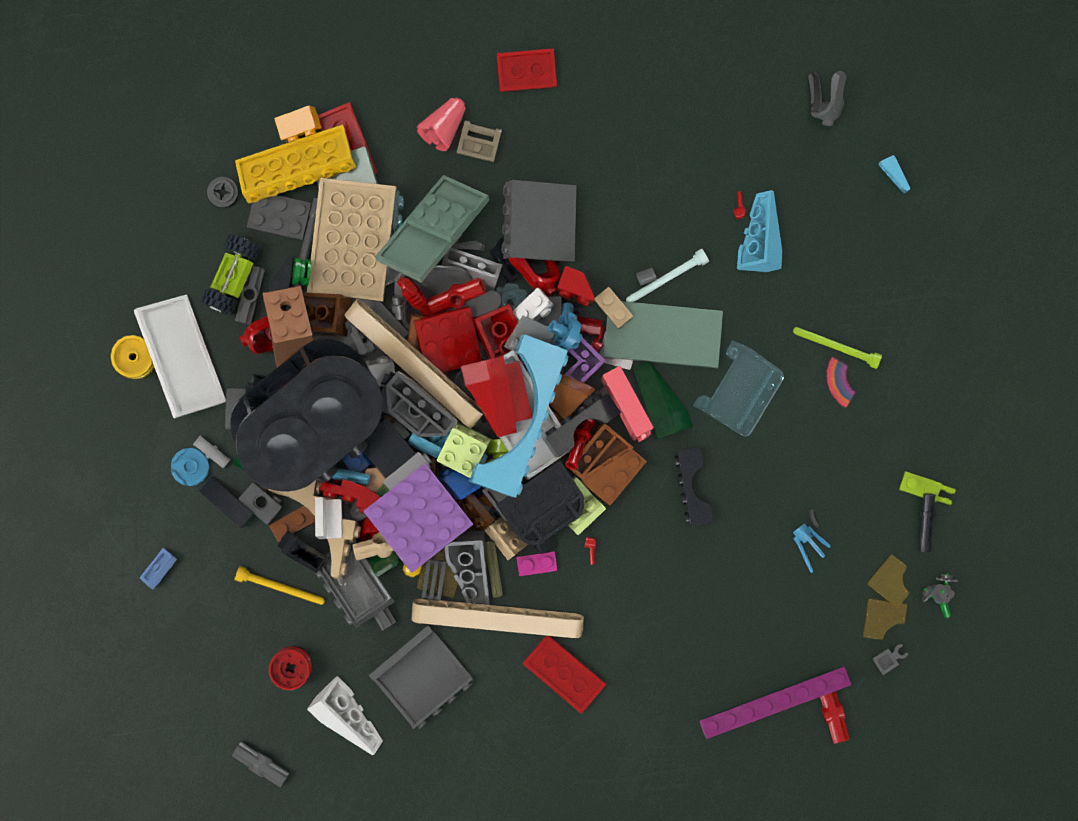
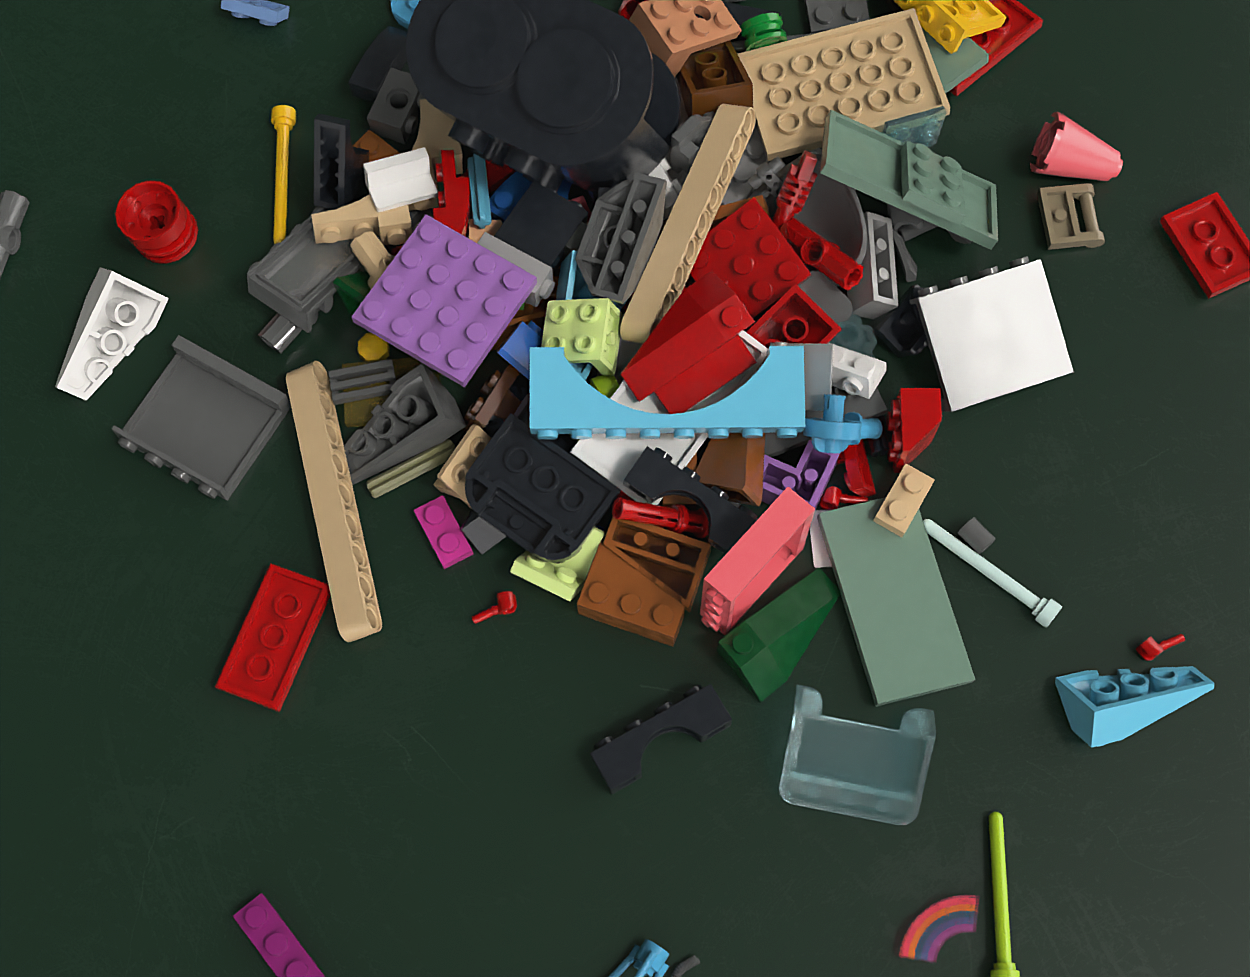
camera: 75 degrees right, 15 degrees down
(544, 281) = (896, 362): red piece -> none

